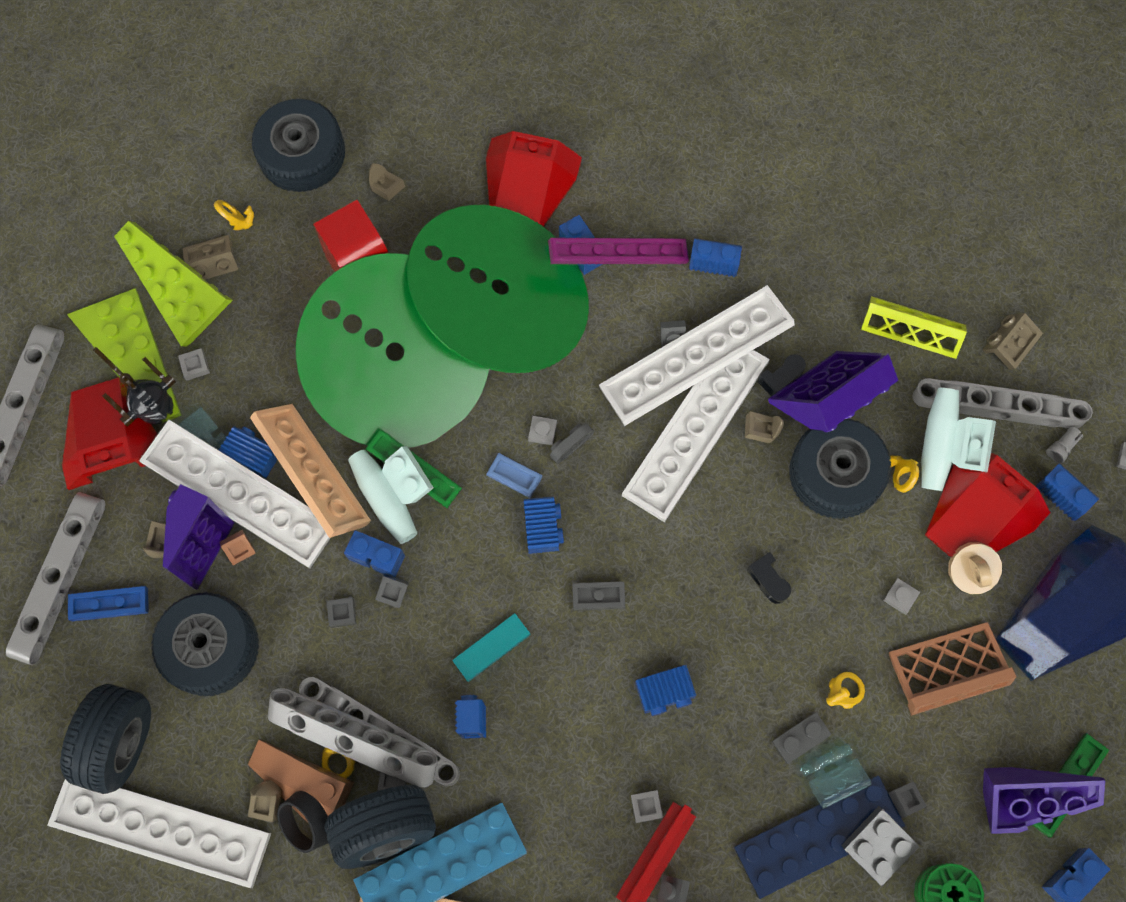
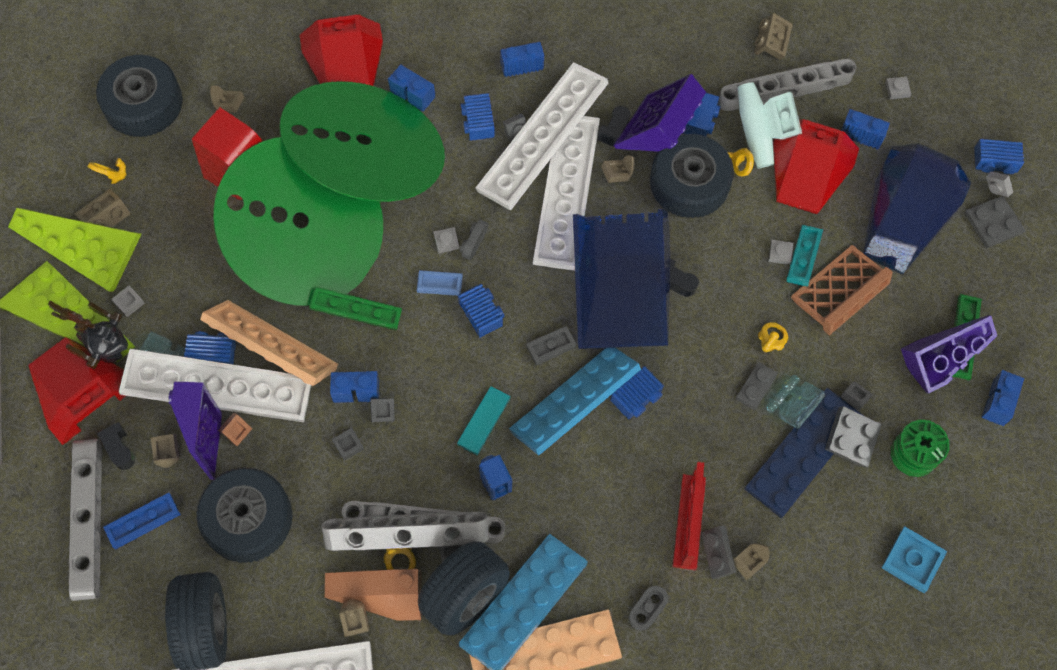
camera: 30 degrees left, 5 degrees down
(116, 515) = (115, 447): none -> black leg
(313, 813) = (404, 602): black tyre -> none
(391, 489) = (344, 331): light aqua plate -> none
(595, 668) = (574, 399): none -> dark azure plate
(618, 251) = (444, 80): magenta tile -> none
(638, 305) = (478, 116): none -> blue brick
(646, 806) = (664, 486): light grey plate -> none
(705, 557) = (622, 280): none -> clear blue windscreen
(884, 405) = (702, 121): none -> blue piece
(915, 318) = (696, 47): neon yellow fence -> none
(926, 612) = (804, 255): none -> teal tile
(975, 568) = (825, 208): tan tile -> none
(1061, 449) = (845, 99): light grey pin -> none

